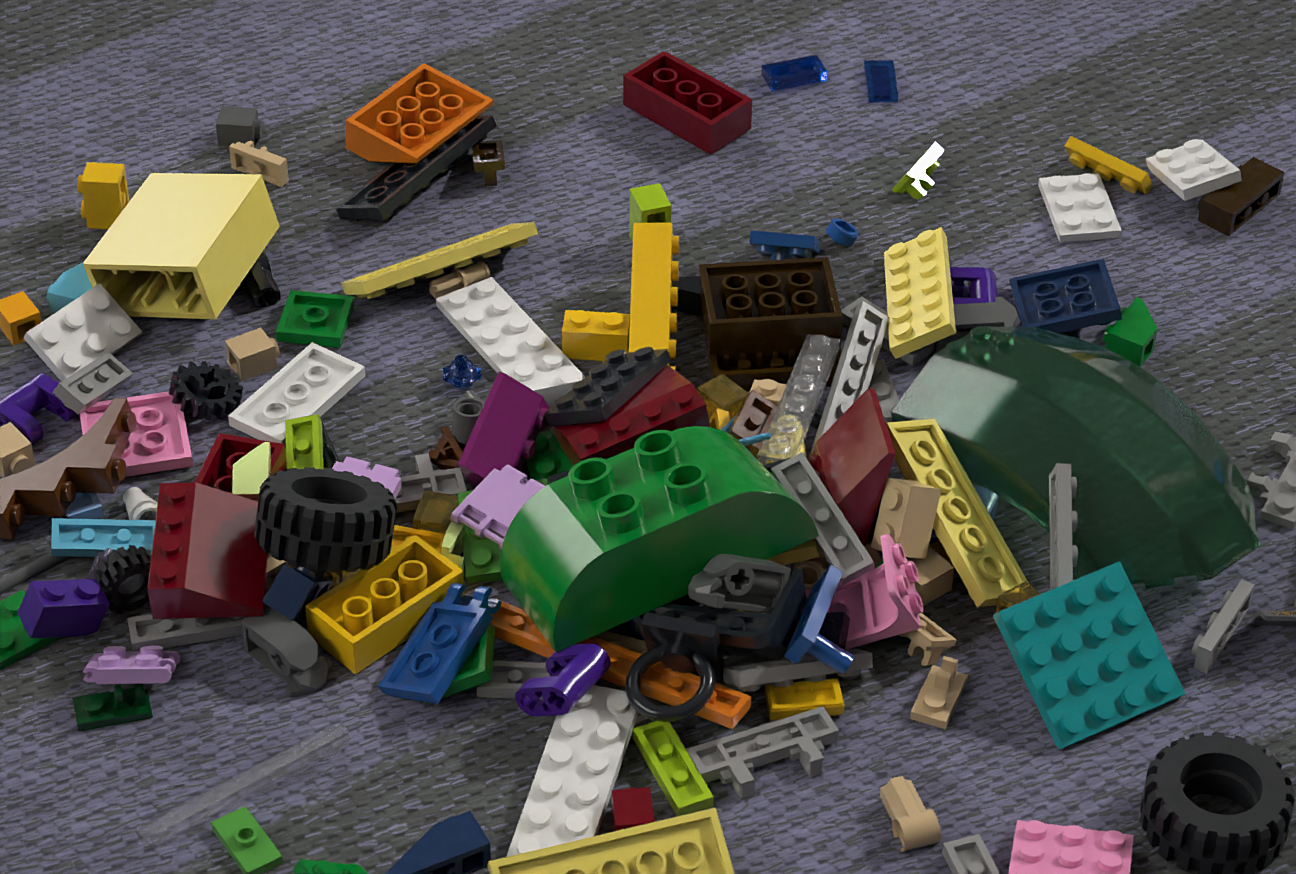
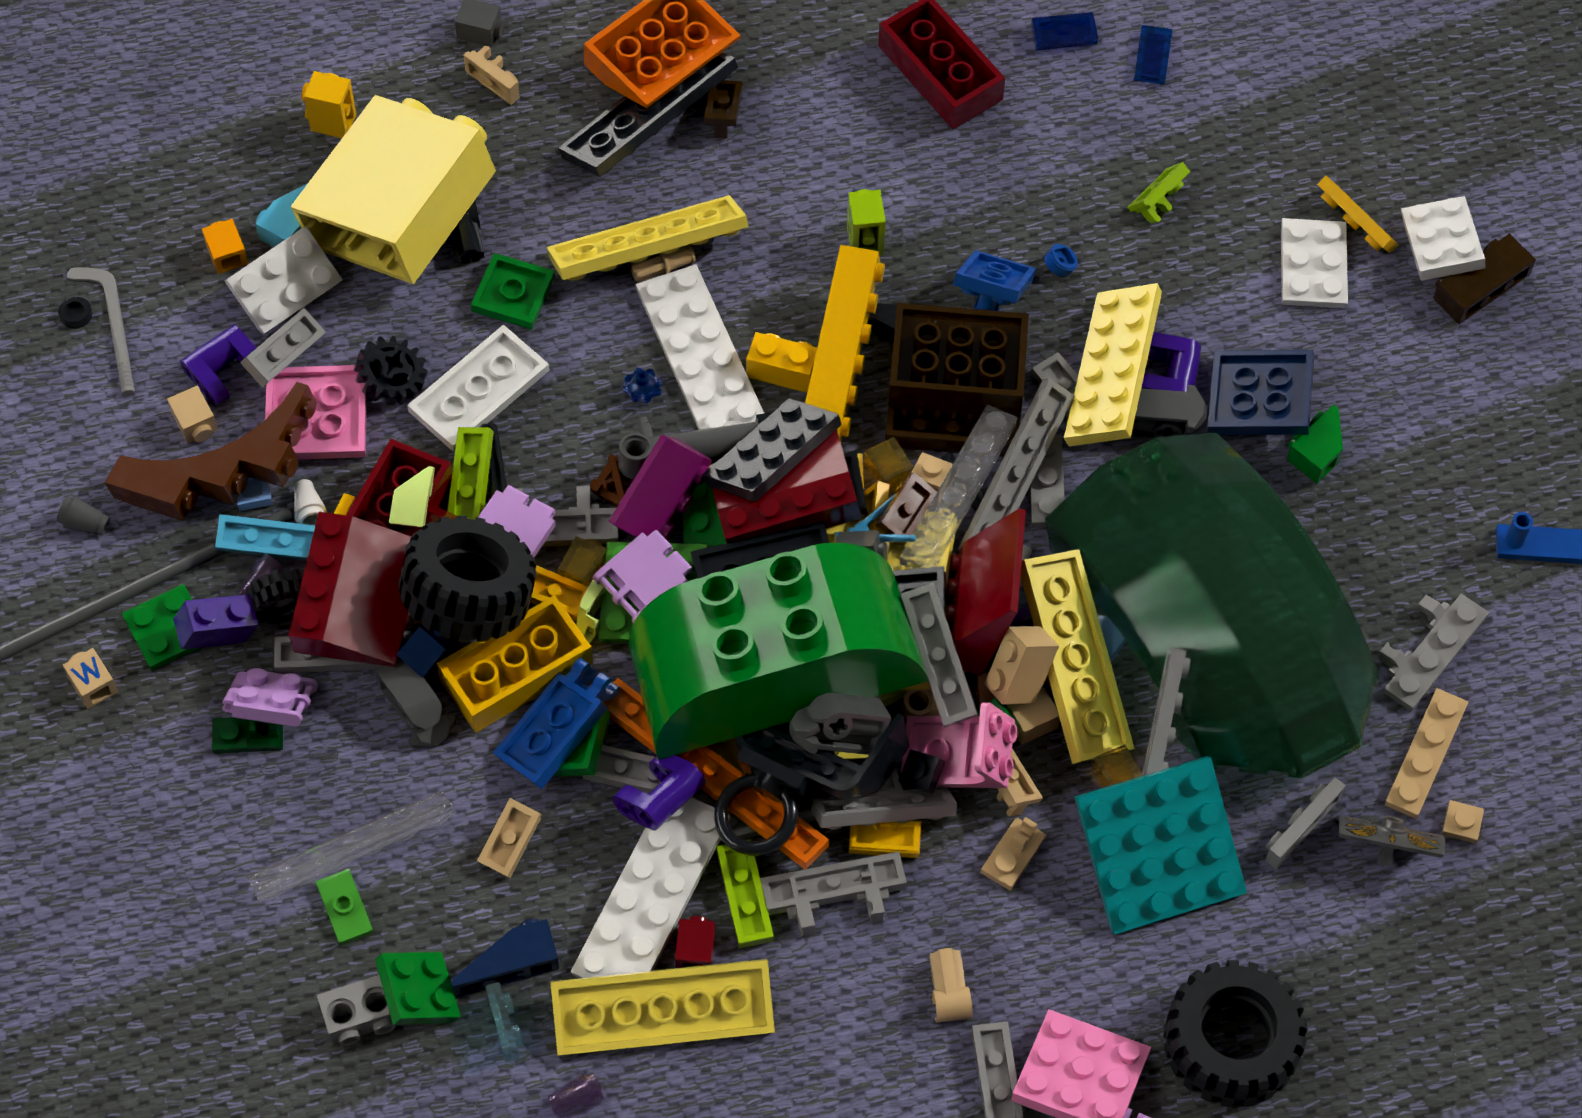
camera: 10 degrees right, 20 degrees up
(252, 354) = (443, 329): tan brick -> none
(413, 752) = (509, 838): none -> tan plate
(806, 633) = (893, 785): blue piece -> none

